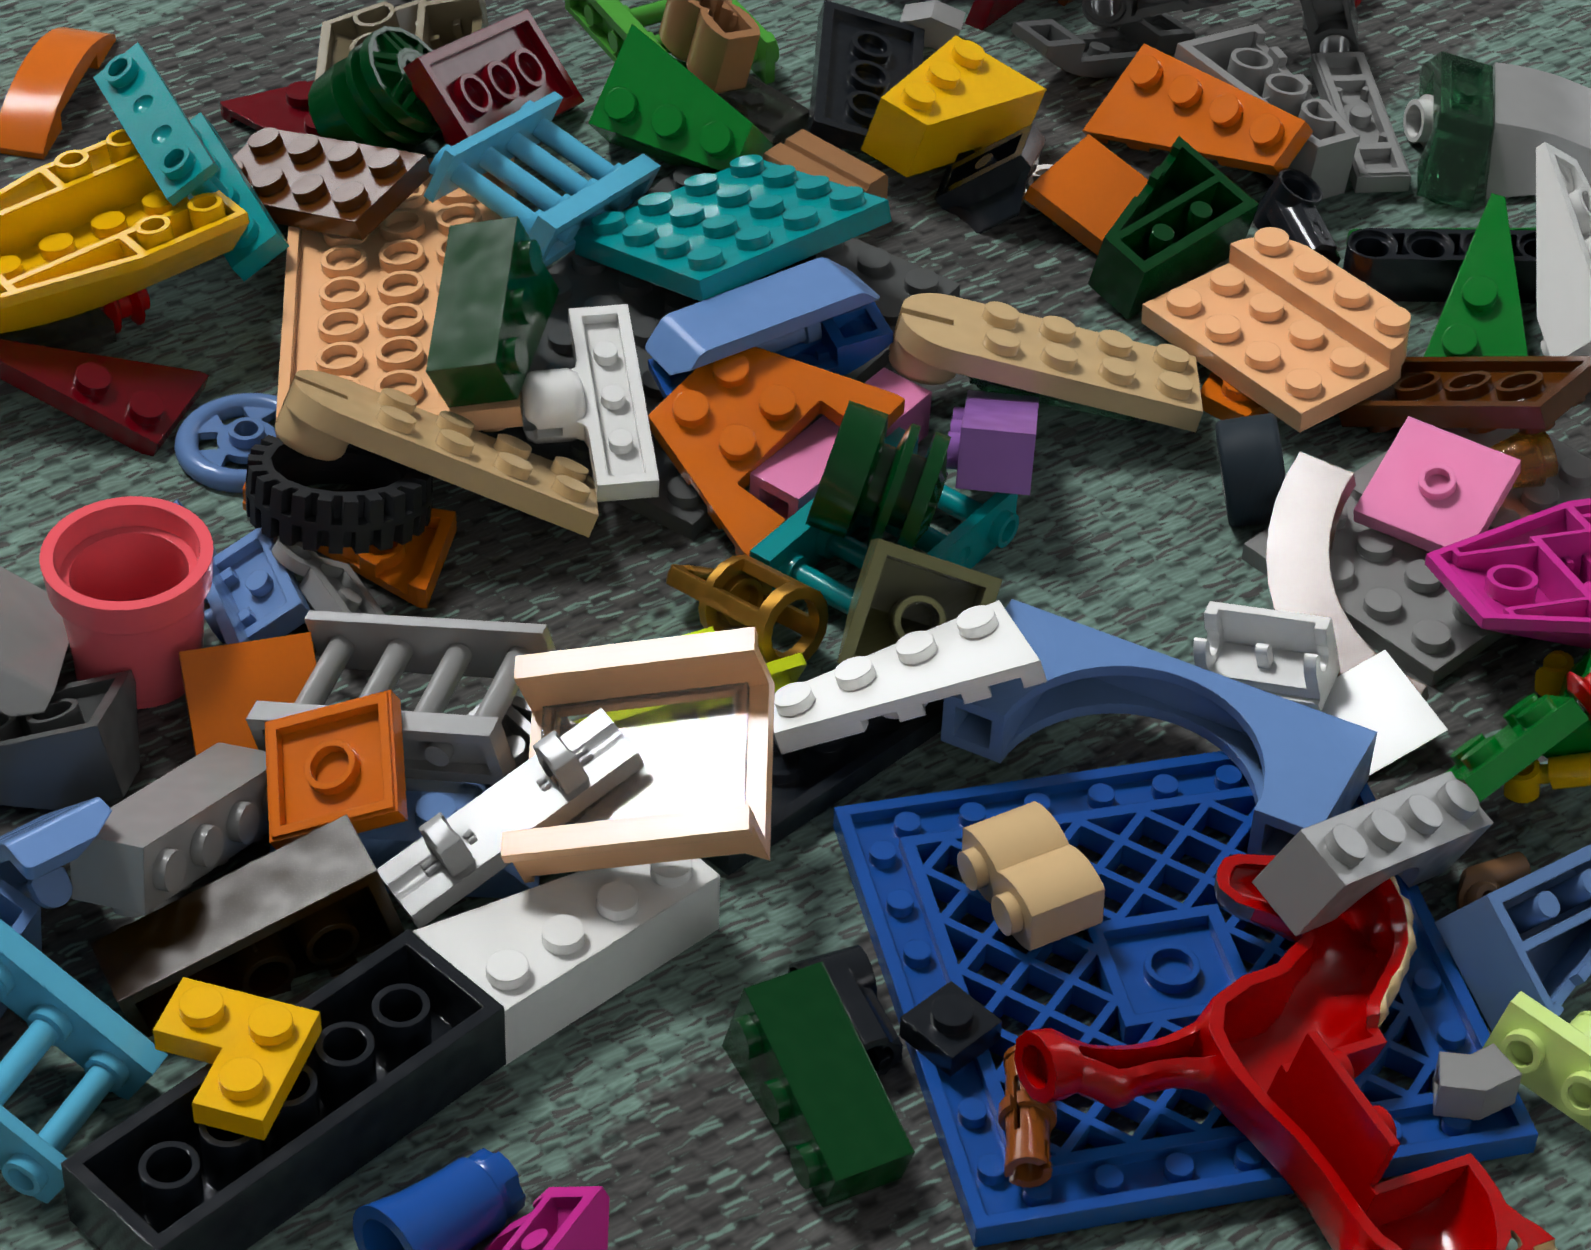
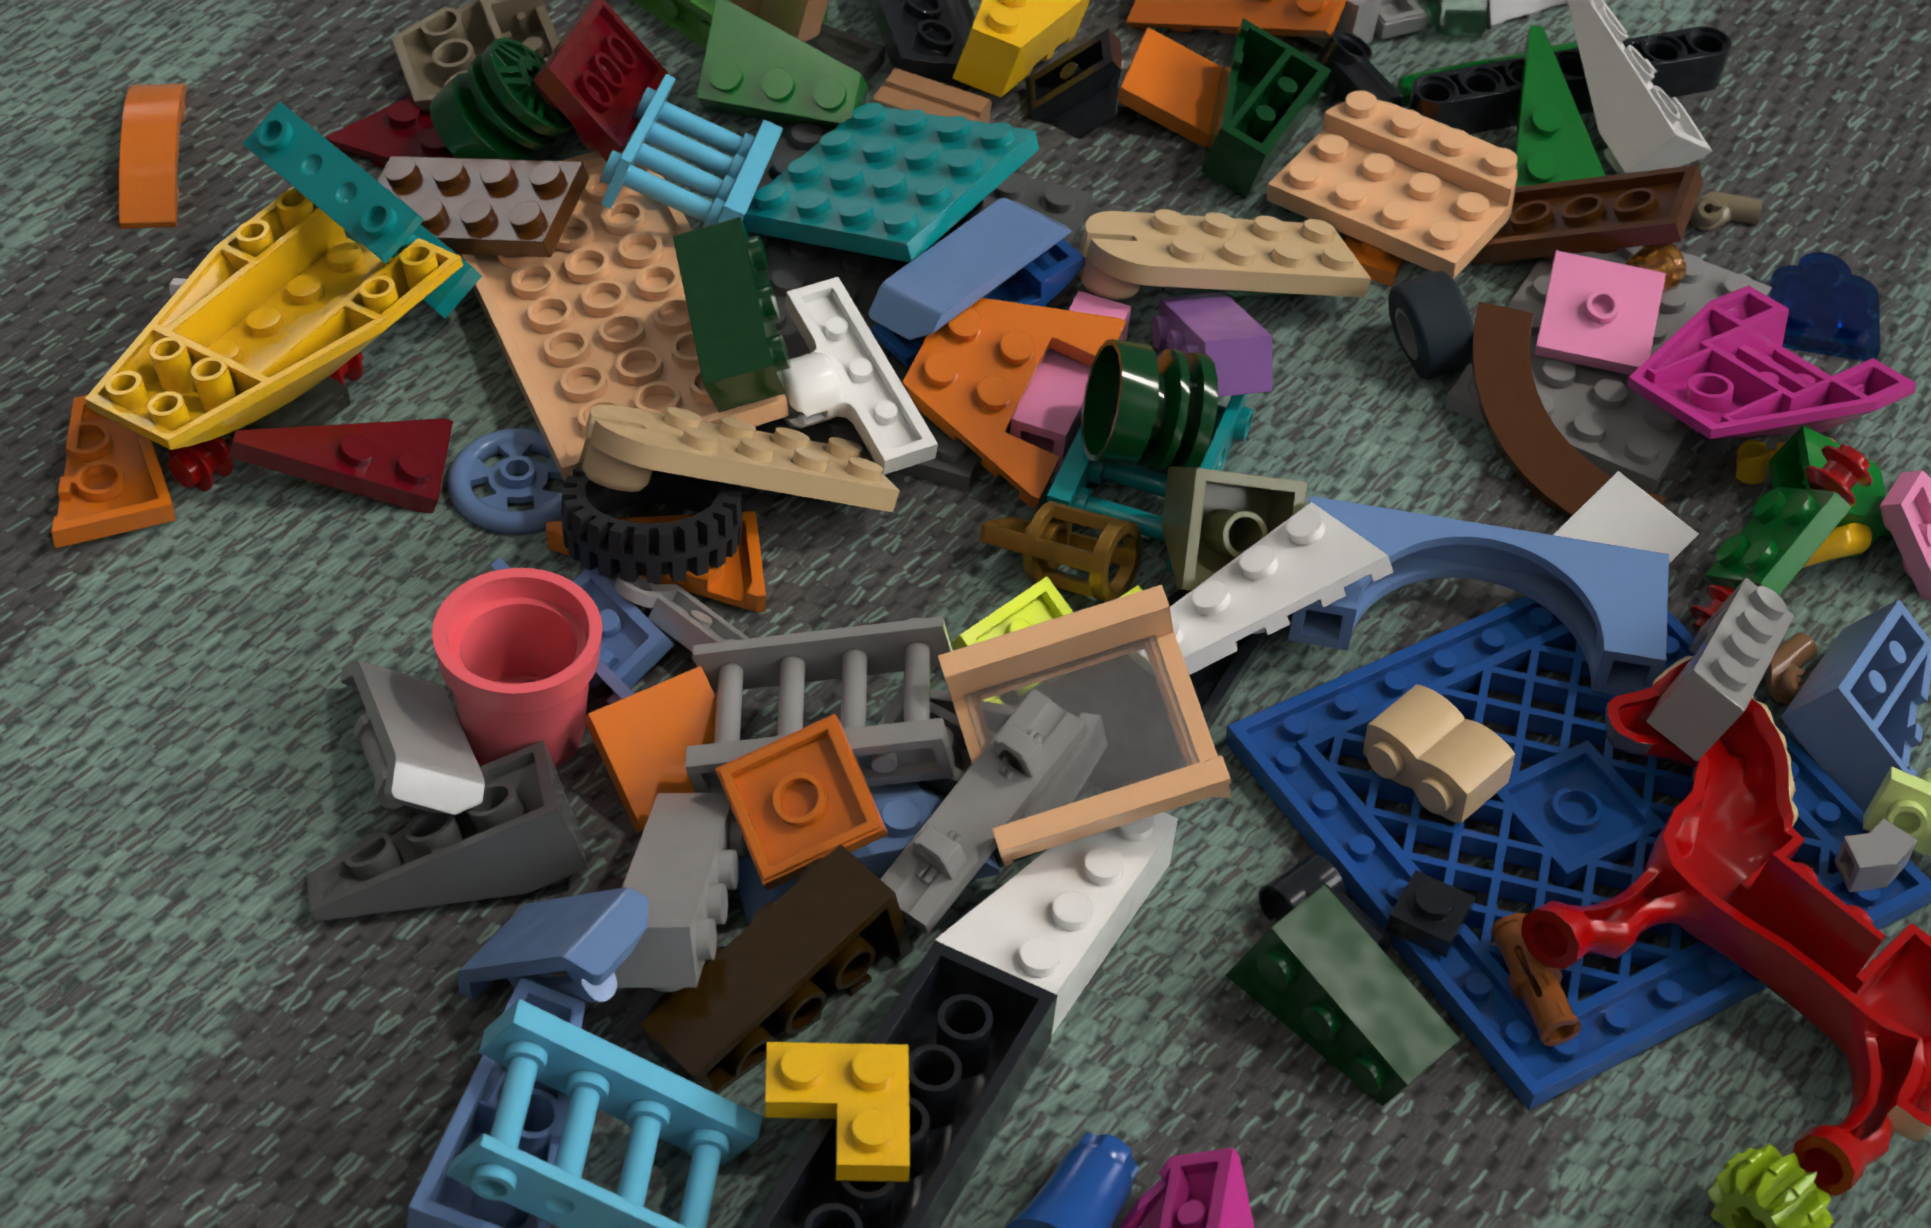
camera: 20 degrees left, 5 degrees up
(1271, 651) = (1527, 494): white hinge -> none

